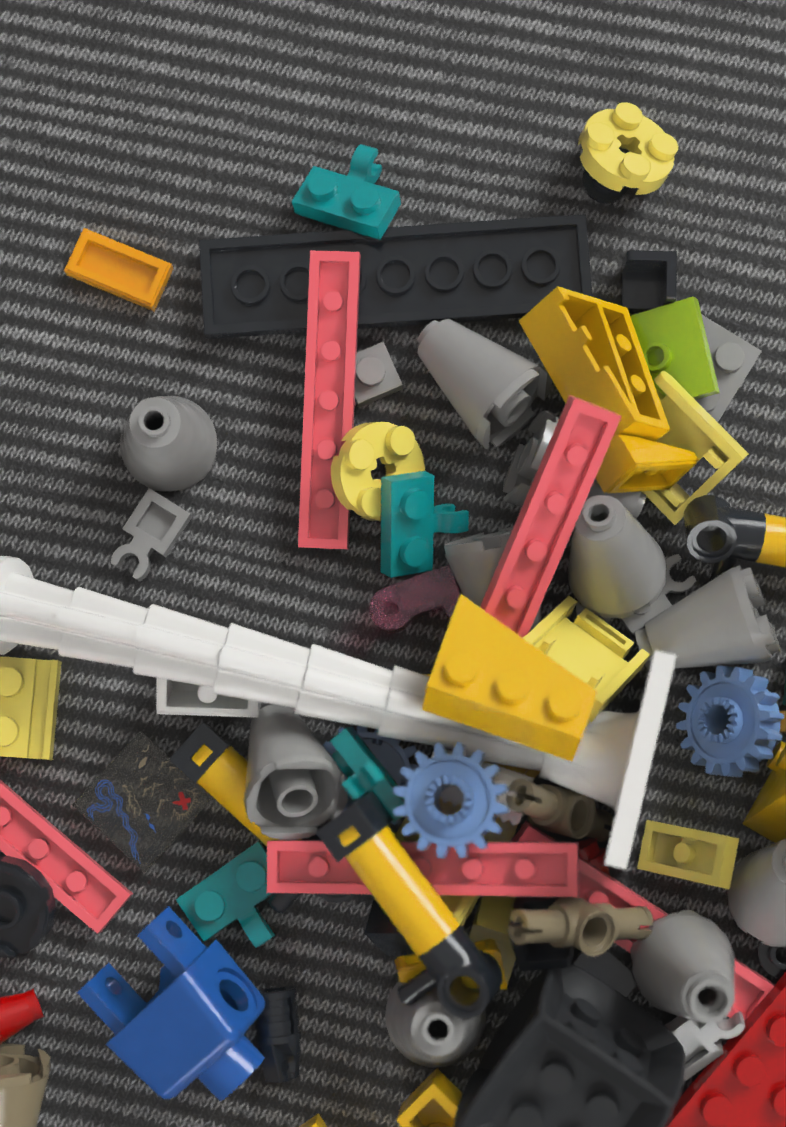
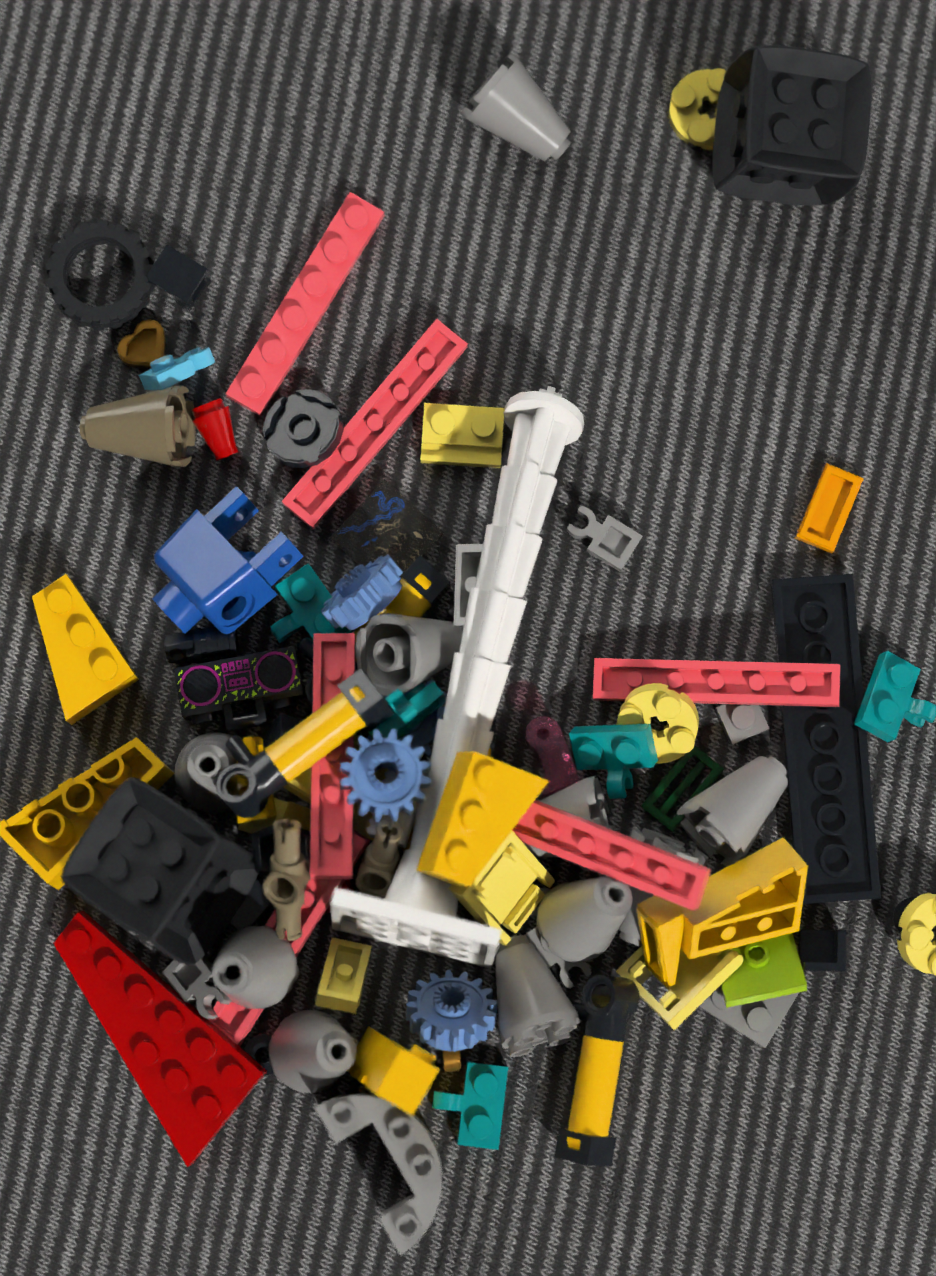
camera: 85 degrees right, 0 degrees up
(168, 443) = (681, 565): light grey cone -> none
(217, 829) = (363, 593): none -> medium blue gear
(328, 1012) = (236, 681): none -> black piece
(485, 472) = (660, 814): none -> dark green tile

